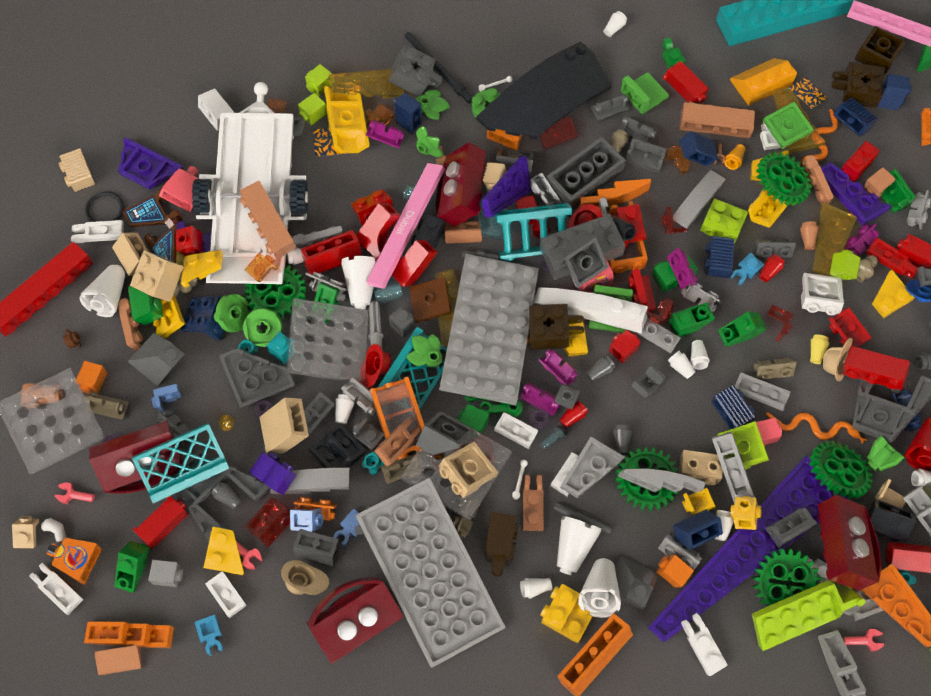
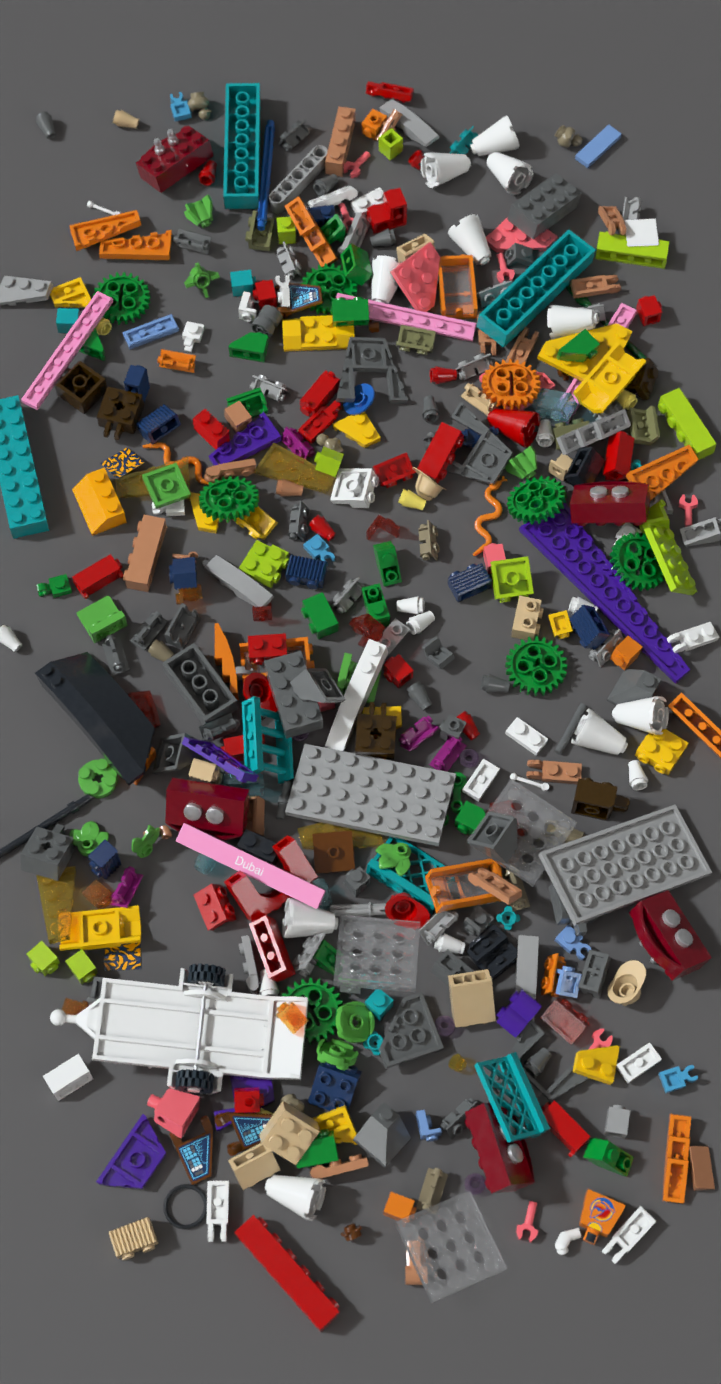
camera: 85 degrees left, 0 degrees up
(24, 532) = (569, 1270): tan bracket -> none
(201, 265) = (282, 1083): yellow wing -> none
(267, 219) = (235, 1007): nougat brick -> none
(467, 469) = (533, 817): tan plate -> none
(483, 87) = (72, 785): white hinge -> none
(558, 433) = (485, 742): clear light blue piece -> none
(590, 467) = (524, 712): light grey wing -> none
(625, 228) = (278, 649): black cone -> none
(641, 290) = (336, 648): red bracket -> none
(656, 479) = (544, 653): light grey slope -> none
(680, 267) = (323, 606): magenta hinge -> none
(732, 466) = (538, 587): light grey hinge -> none
(735, 157) = (192, 542): light orange cone -> none
(745, 512) = (576, 583): yellow brick -> none
(762, 391) = (452, 556): light grey hinge -> none
(791, 527) = (590, 549): dark grey hinge -> none

